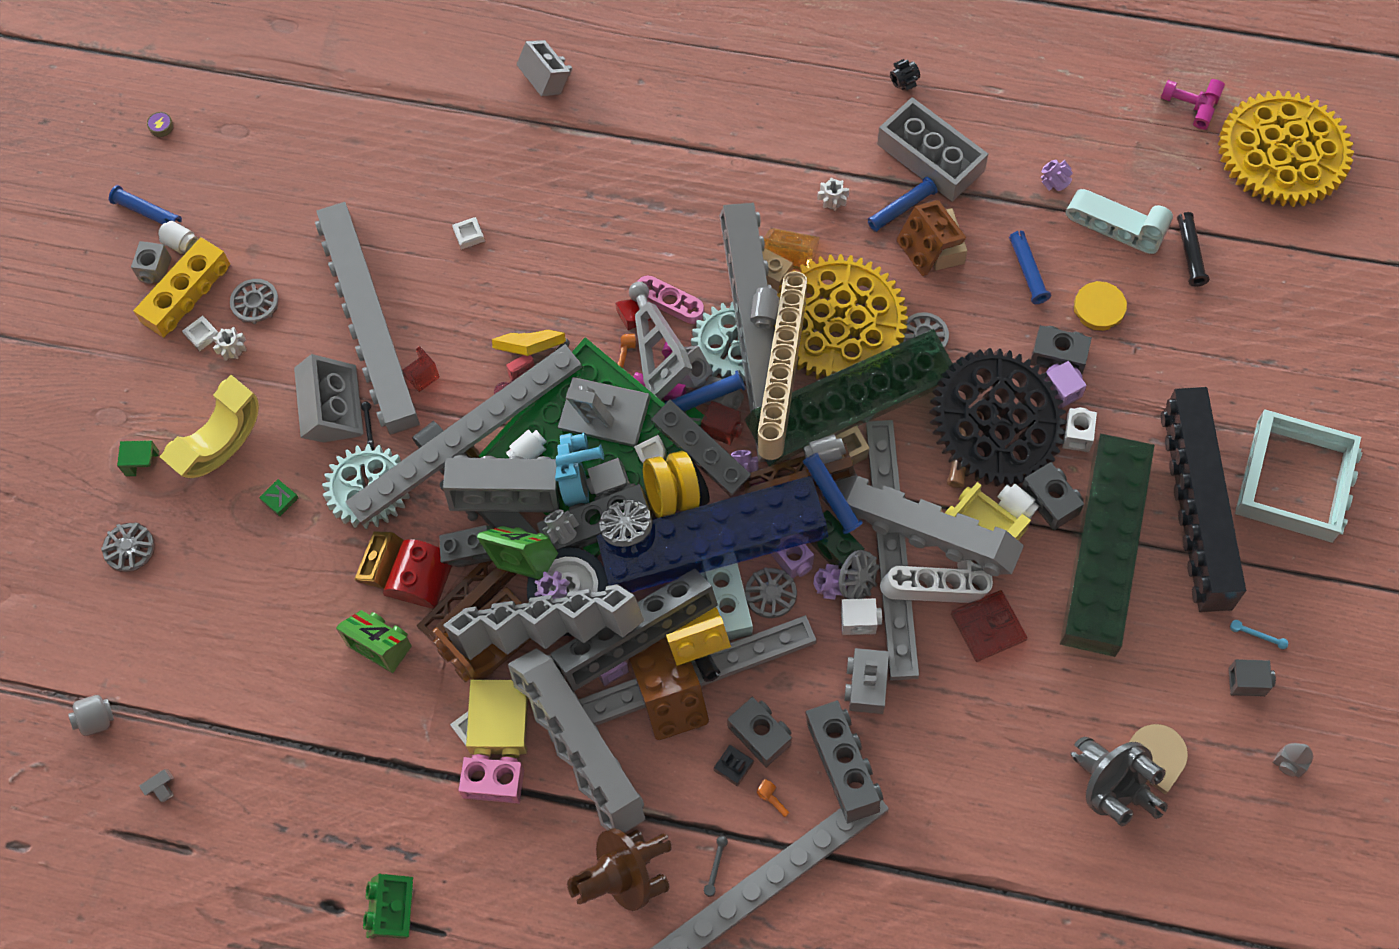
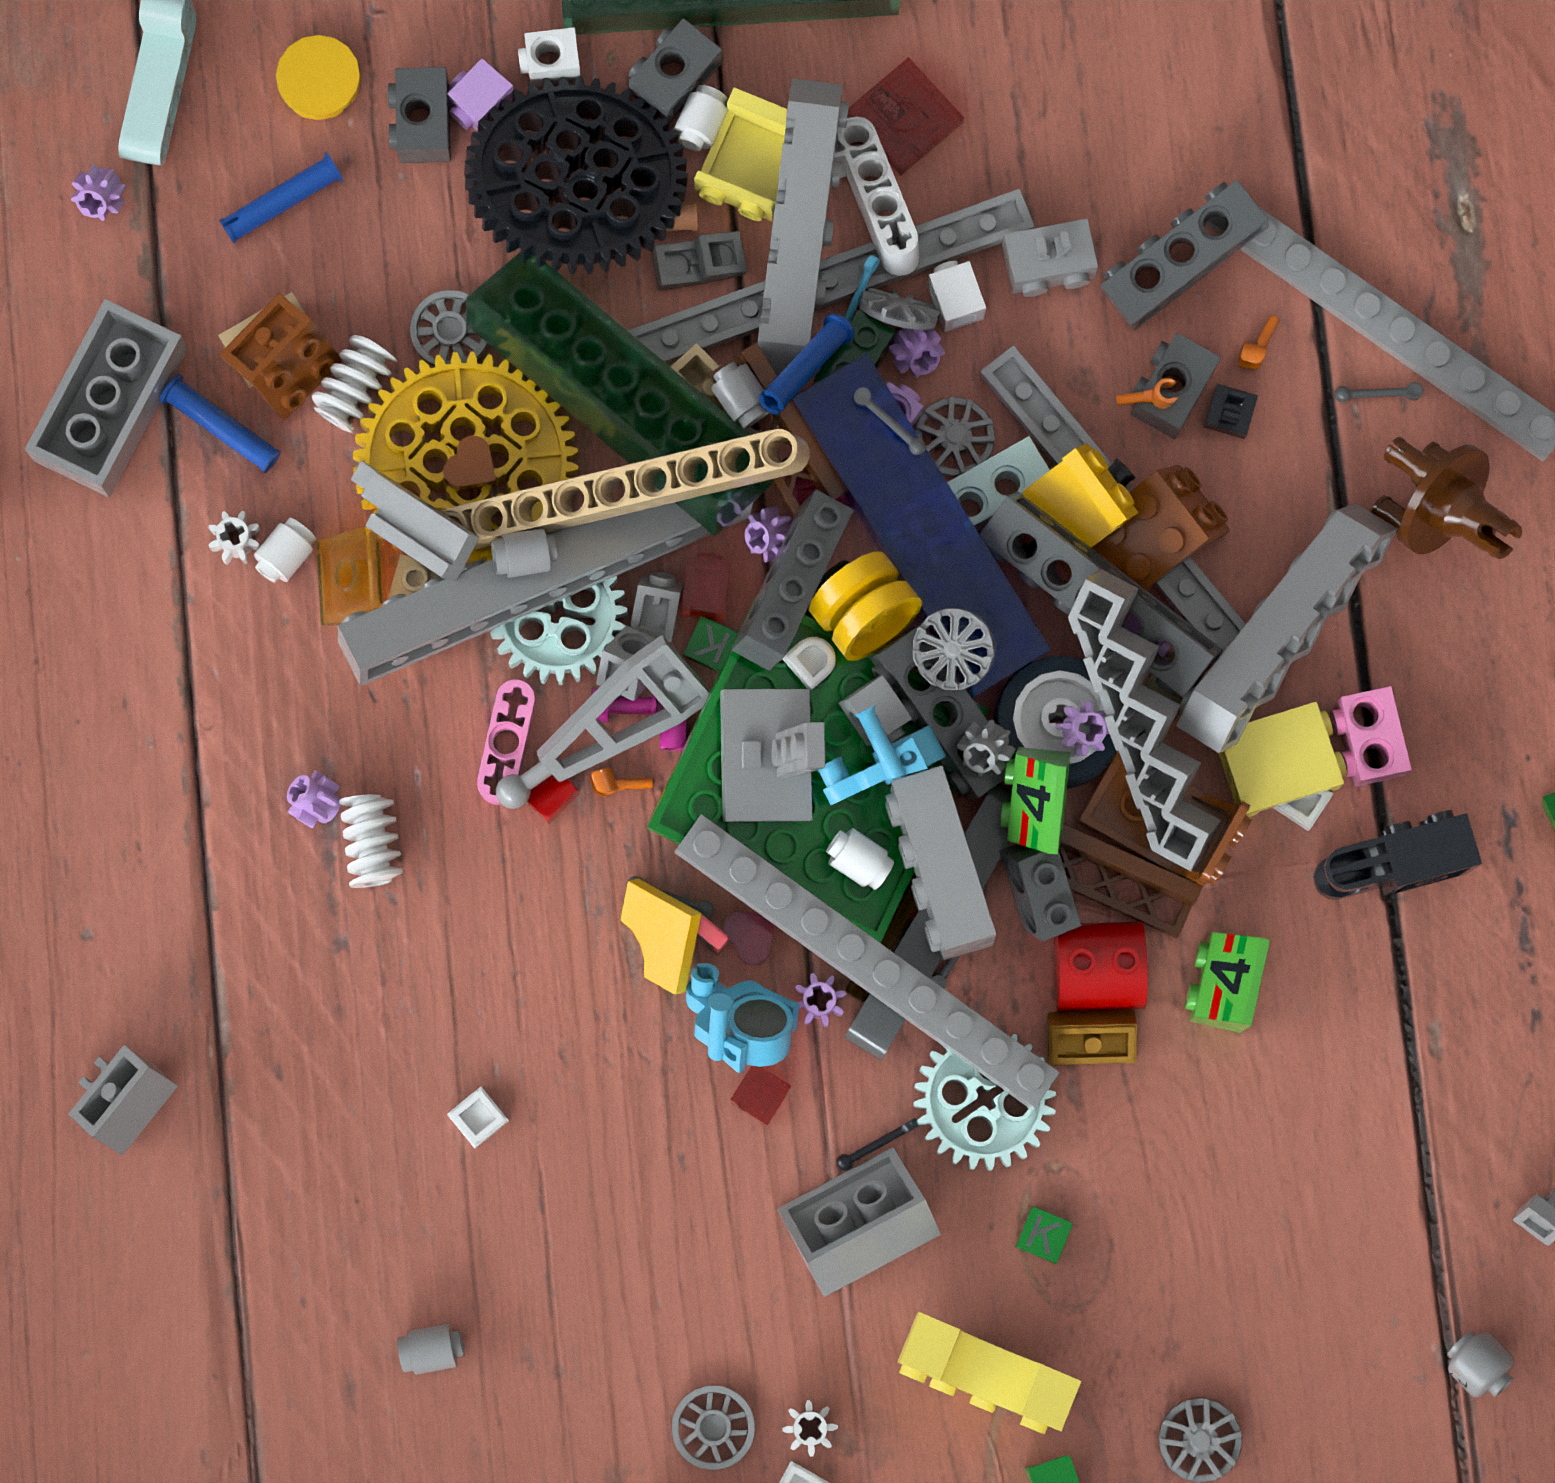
camera: 115 degrees left, 15 degrees up
(355, 176) = (430, 1349): none -> light grey brick
(367, 318) = (688, 1221): light grey brick -> none
(405, 765) = (1401, 858): none -> black brick
(455, 411) = (825, 989): none -> lavender gear
(456, 370) = (740, 1021): none -> medium azure piece
(637, 216) = (370, 840): none -> white piece
(671, 194) = (313, 799): none -> lavender gear
(710, 392) = (674, 620): blue pin -> none
(754, 702) = (1152, 395): none -> orange hand
(798, 512) = (863, 397): none -> dark grey hinge
(802, 262) = (415, 524): none -> light grey piece
(817, 216) = (284, 551): none -> white brick
(833, 311) = (471, 465): none -> dark orange tile
(890, 563) = (869, 267): none -> medium azure hinge
(902, 272) = (352, 382): none -> white piece
(927, 477) = (699, 261): none -> dark grey slope

